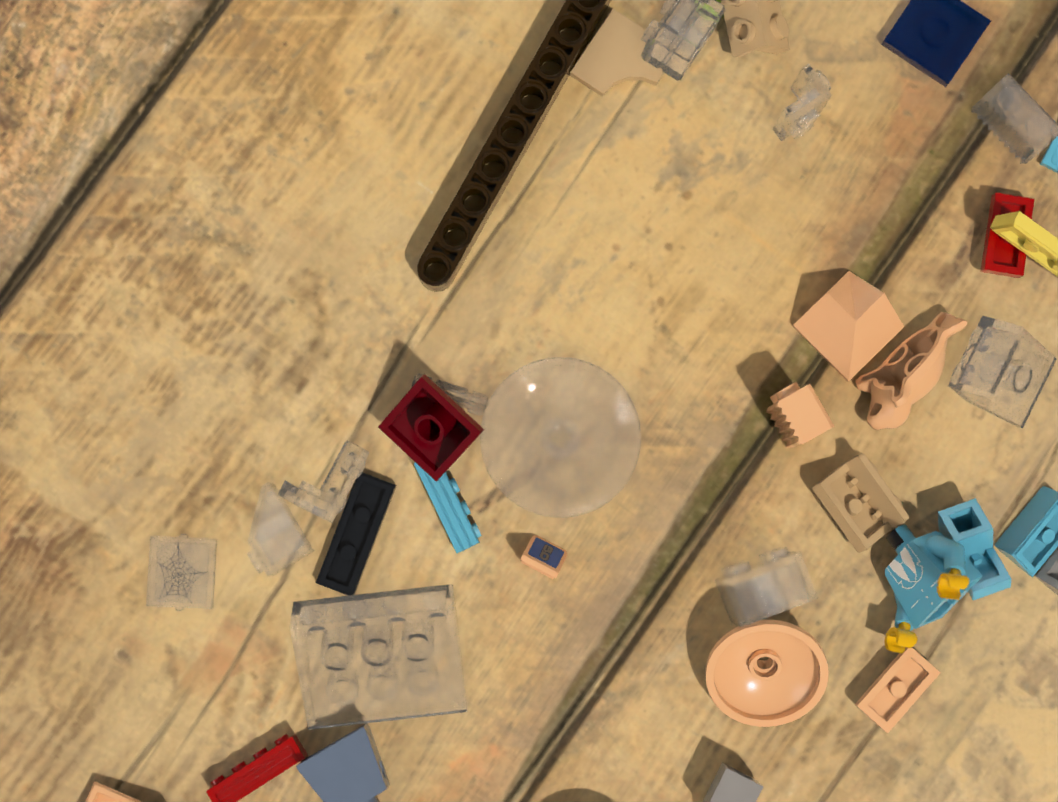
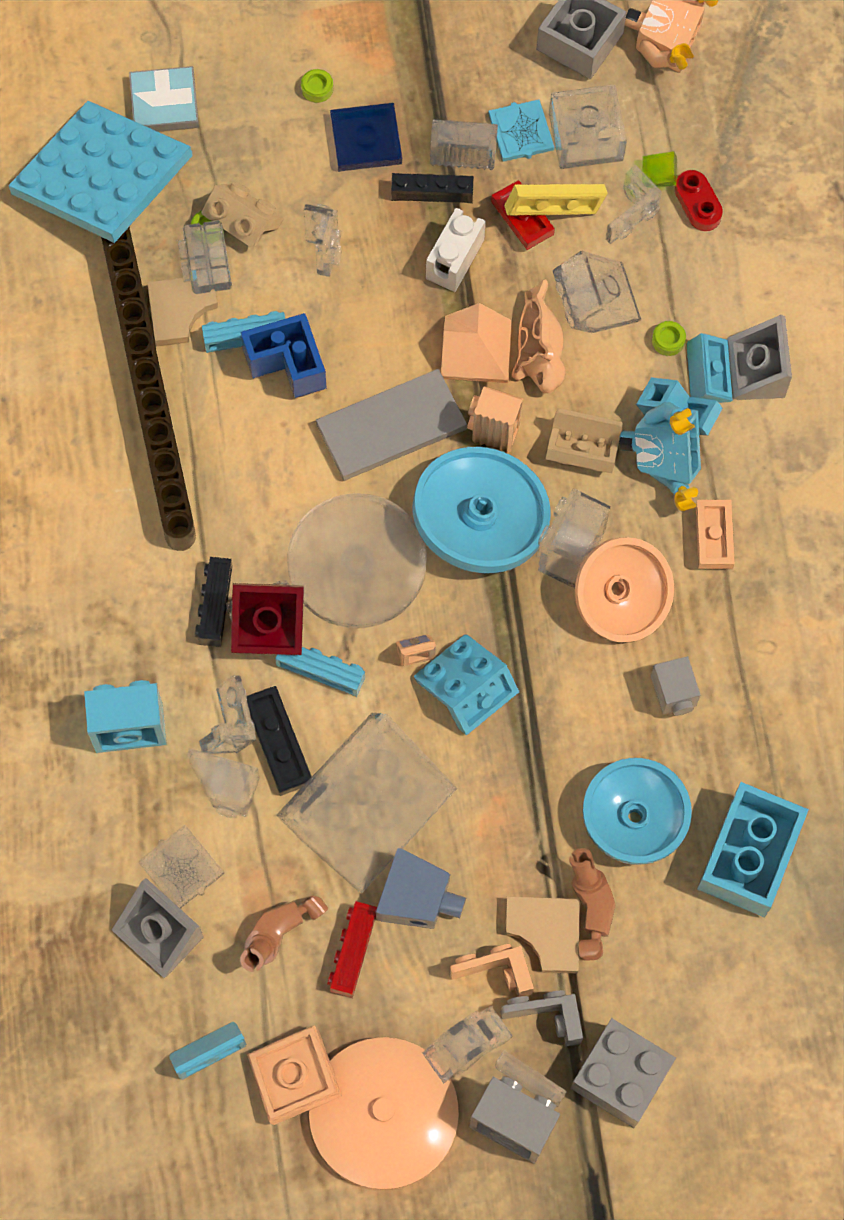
camera: 45 degrees left, 15 degrees down
(66, 748) = (207, 1050): none -> medium azure slope
(114, 611) = (157, 929): none -> light grey slope
(197, 697) = (266, 937): none -> nougat arm
(237, 407) = (125, 717): none -> medium azure brick
(414, 360) = (215, 597): none -> black piece
(558, 627) = (468, 682): none -> medium azure bracket
(656, 131) = (228, 334): none -> medium azure piece
(678, 181) = (286, 346): none -> blue brick
(708, 332) = (391, 424): none -> light grey tile
(709, 487) = (481, 509): none -> medium azure dish
(913, 217) = (455, 249): none -> white brick
(949, 136) = (432, 188): none -> black piece
(1030, 468) = (668, 338): none -> lime tile

